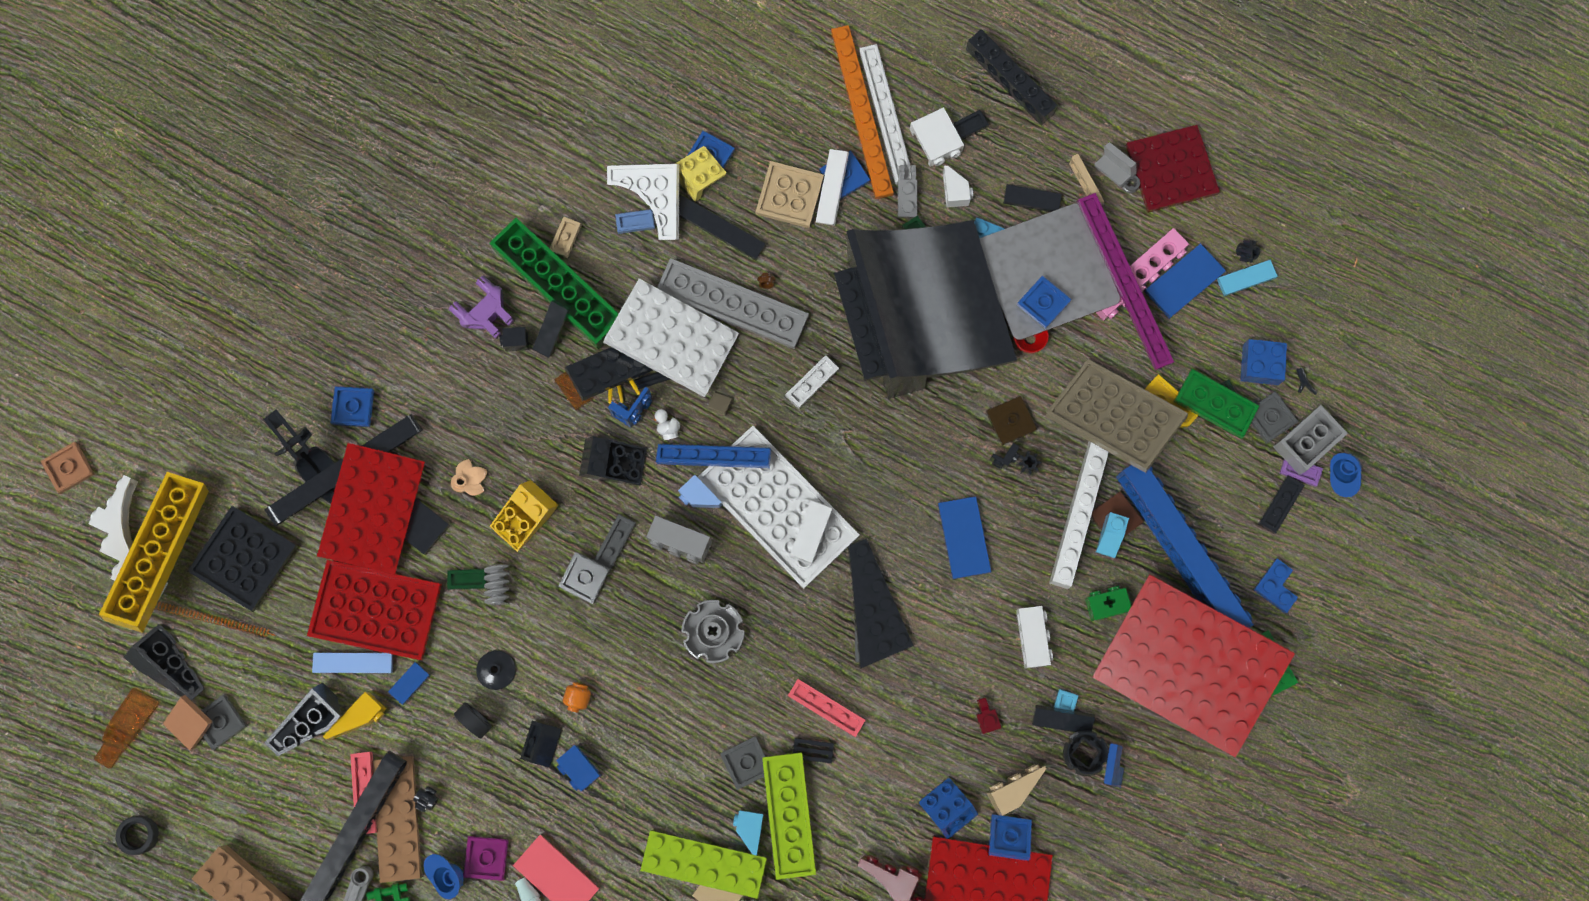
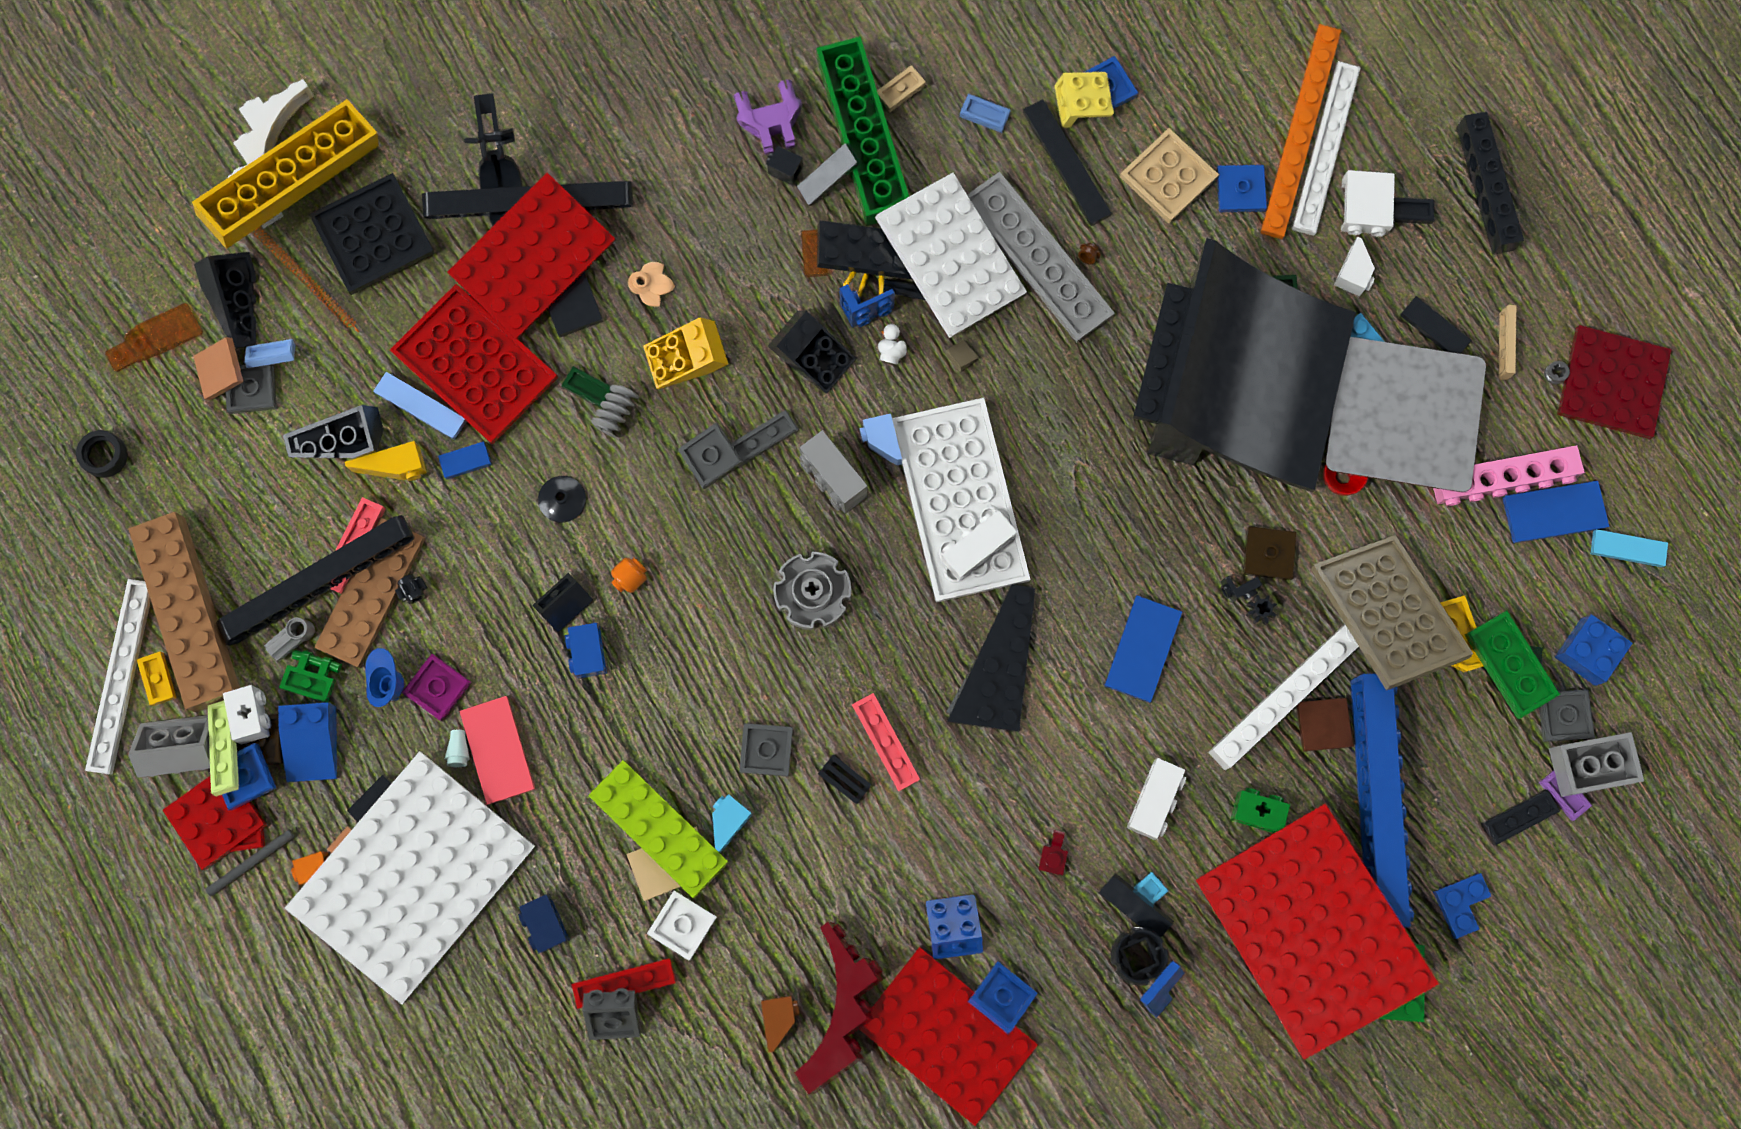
camera: 30 degrees right, 0 degrees up
(67, 467) = (252, 42): nougat tile -> none
(219, 689) = (269, 353): none -> light blue tile
(352, 406) = (574, 141): blue plate -> none
(472, 720) = (506, 535): black tyre -> none
(657, 187) = (1029, 89): white plate -> none
(713, 456) = (922, 406): blue tile -> none
(789, 816) = (778, 831): lime plate -> none
(812, 382) = (1075, 388): white plate -> none
(832, 187) = (1220, 192): white tile -> none
(907, 194) = (1298, 245): light grey hinge -> none
(1013, 793) = (1032, 952): tan slope -> none
(1044, 302) = (1382, 444): blue plate -> none
(1112, 534) = (1308, 738): medium azure slope -> none
(1116, 165) = (1552, 342): light grey panel -> none
(1125, 281) = (1487, 473): magenta plate -> none
(1248, 251) = (1647, 518): black gear -> none
(1304, 382) = (1627, 698): black bar -> none
(1345, 474) = (1614, 826): blue piece -> none

